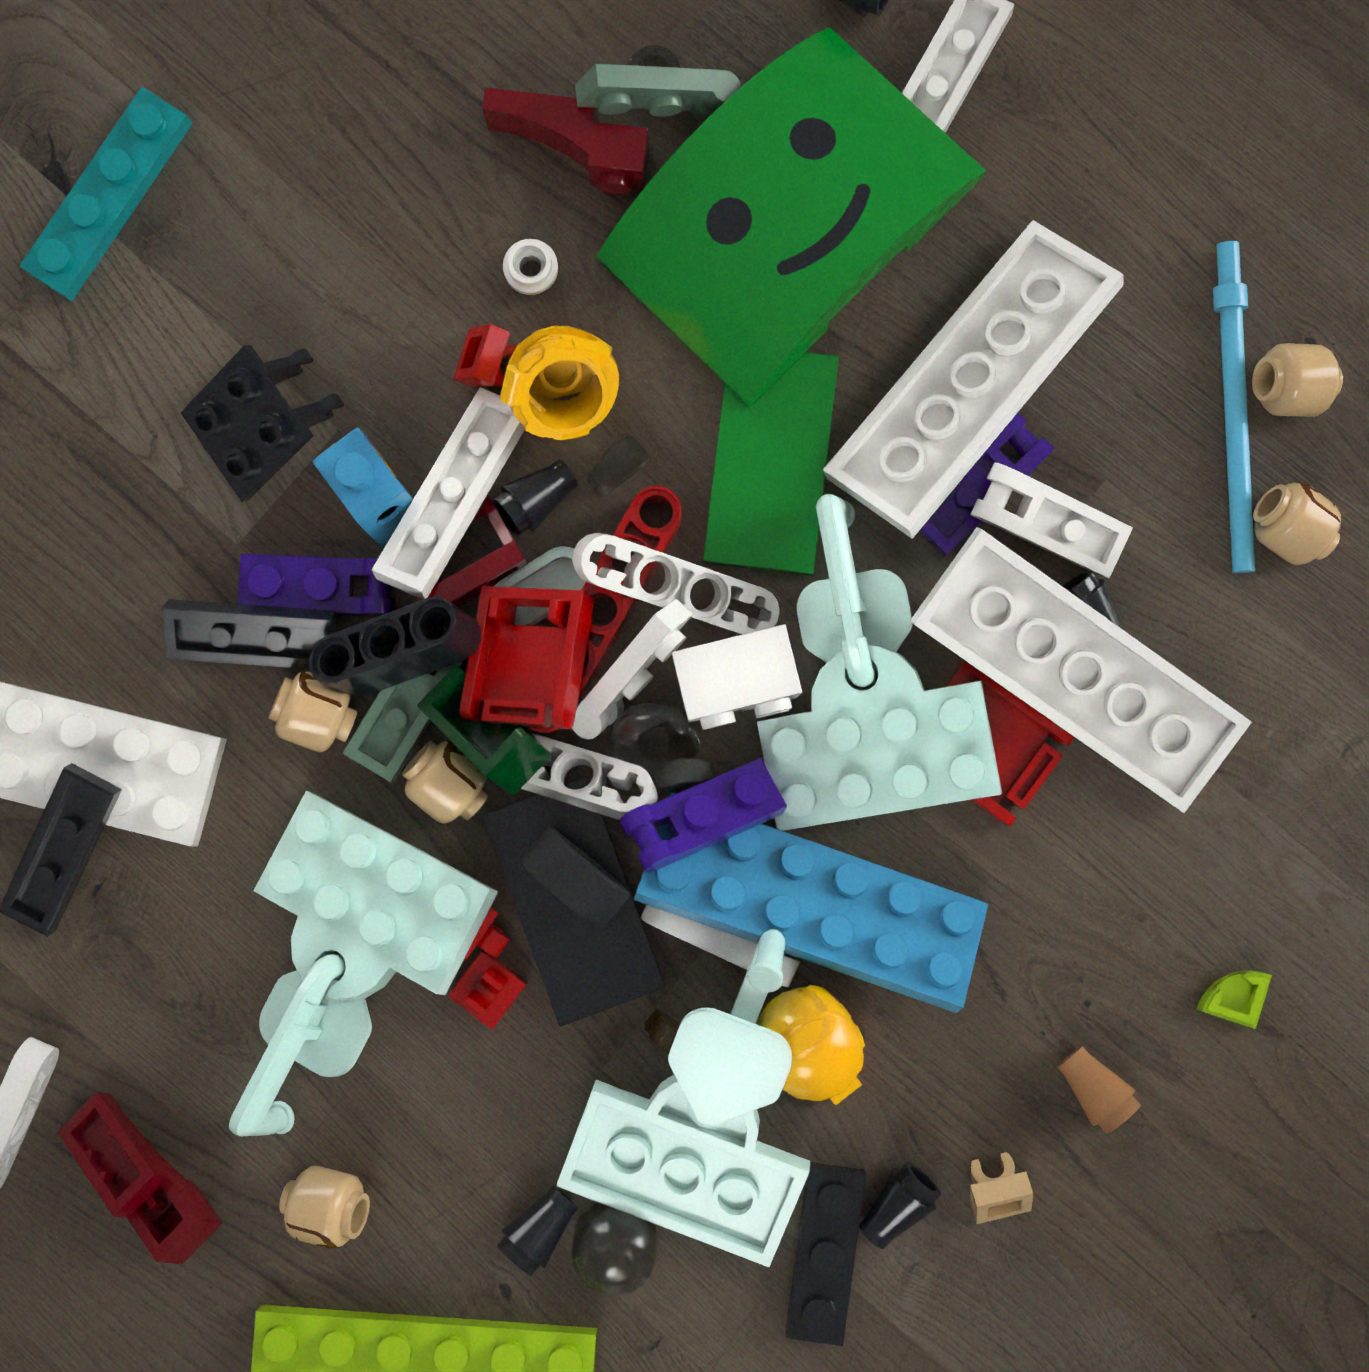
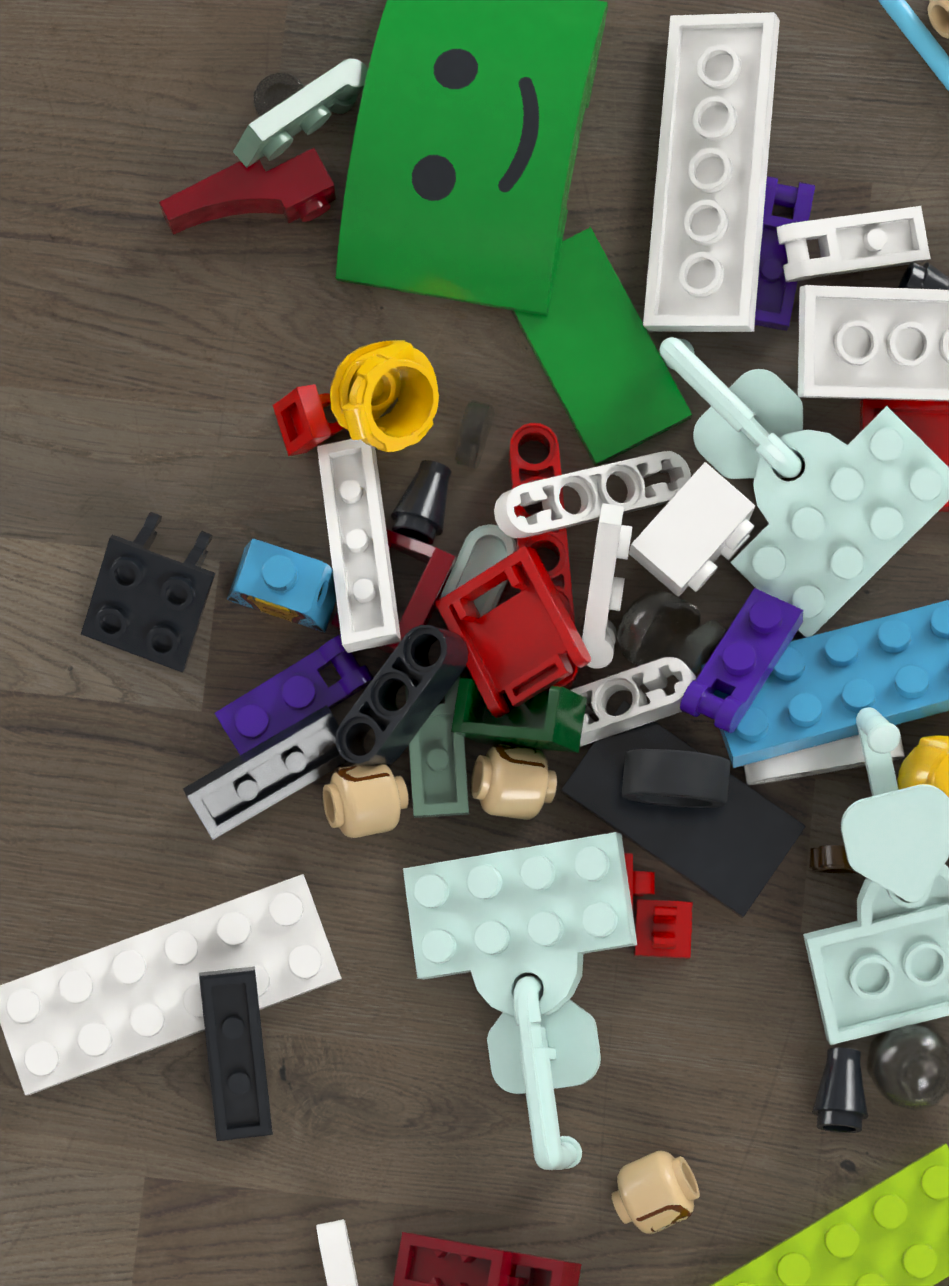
camera: 40 degrees left, 5 degrees down
(526, 251) = (282, 307): white plate -> none

